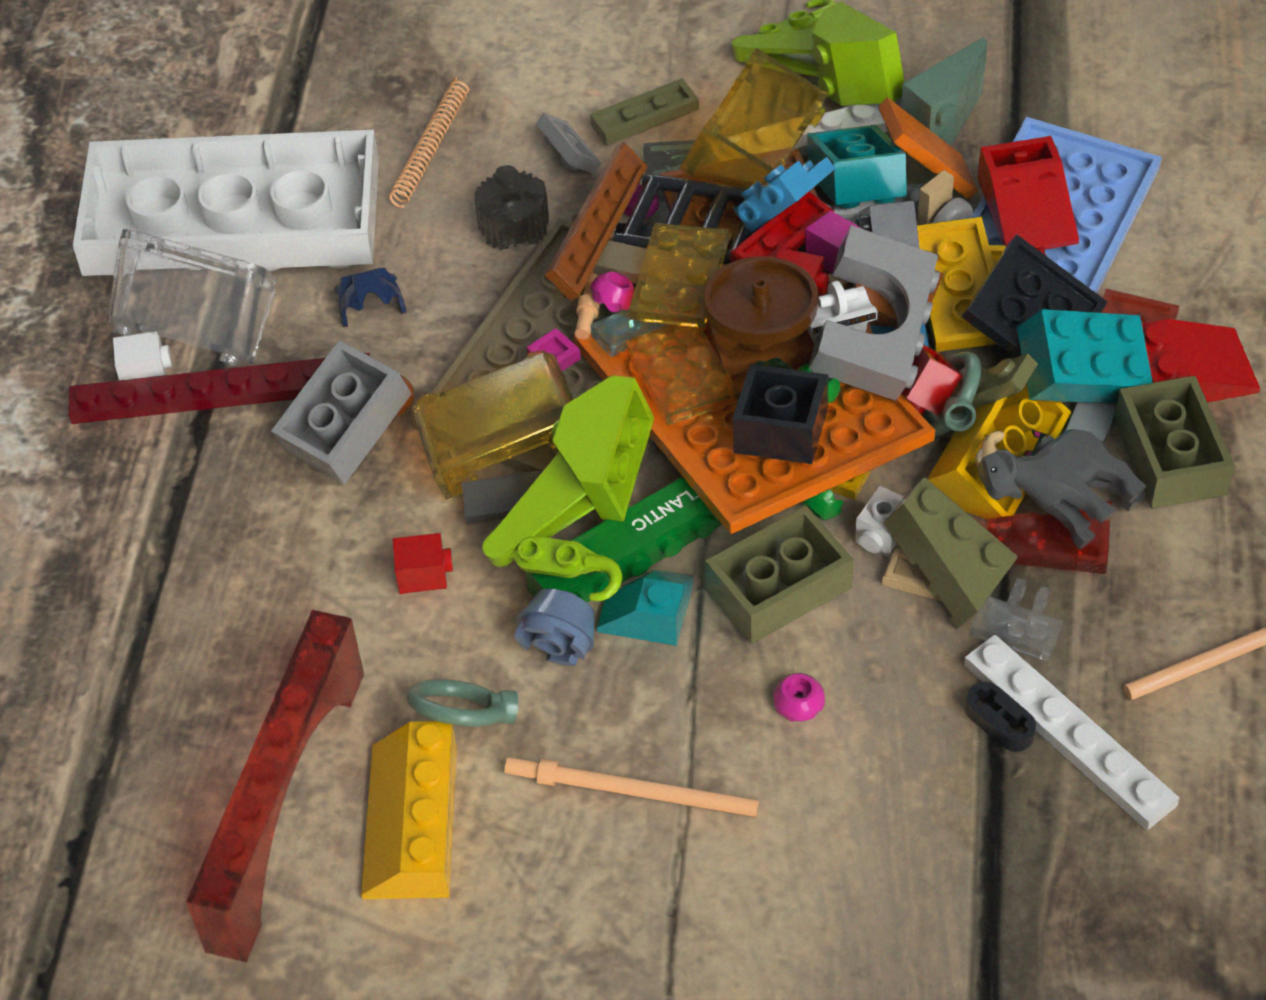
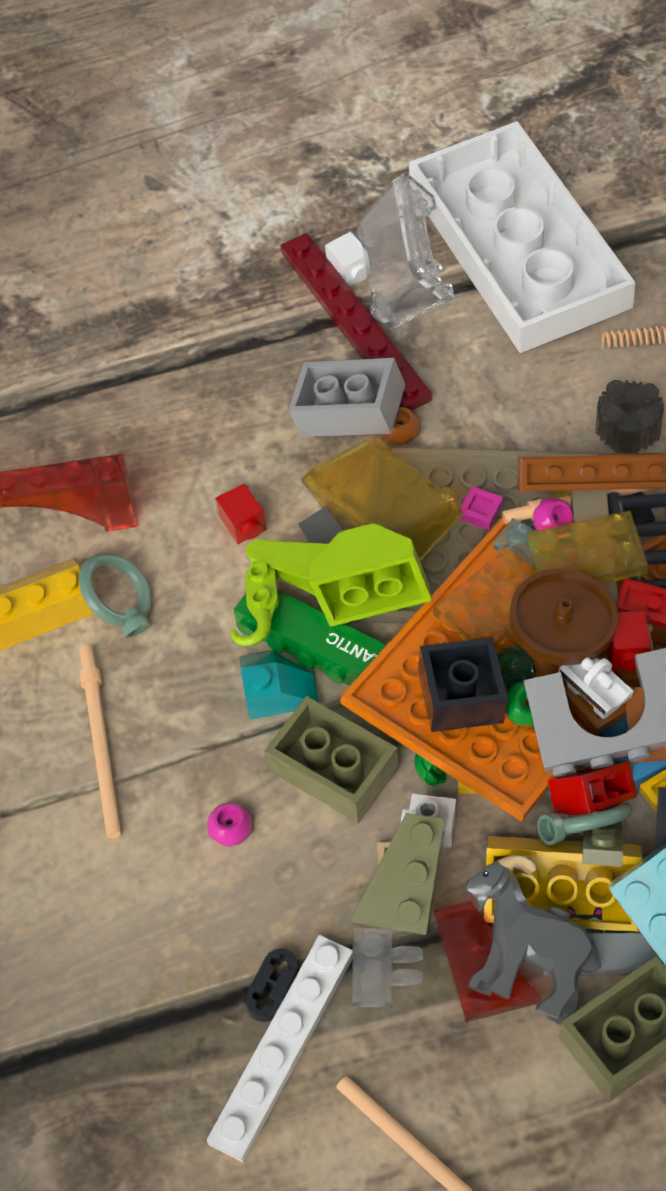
camera: 70 degrees right, 5 degrees up
(355, 287) = (491, 364): dark blue helmet -> none
(557, 625) = (208, 623): sand blue cone -> none

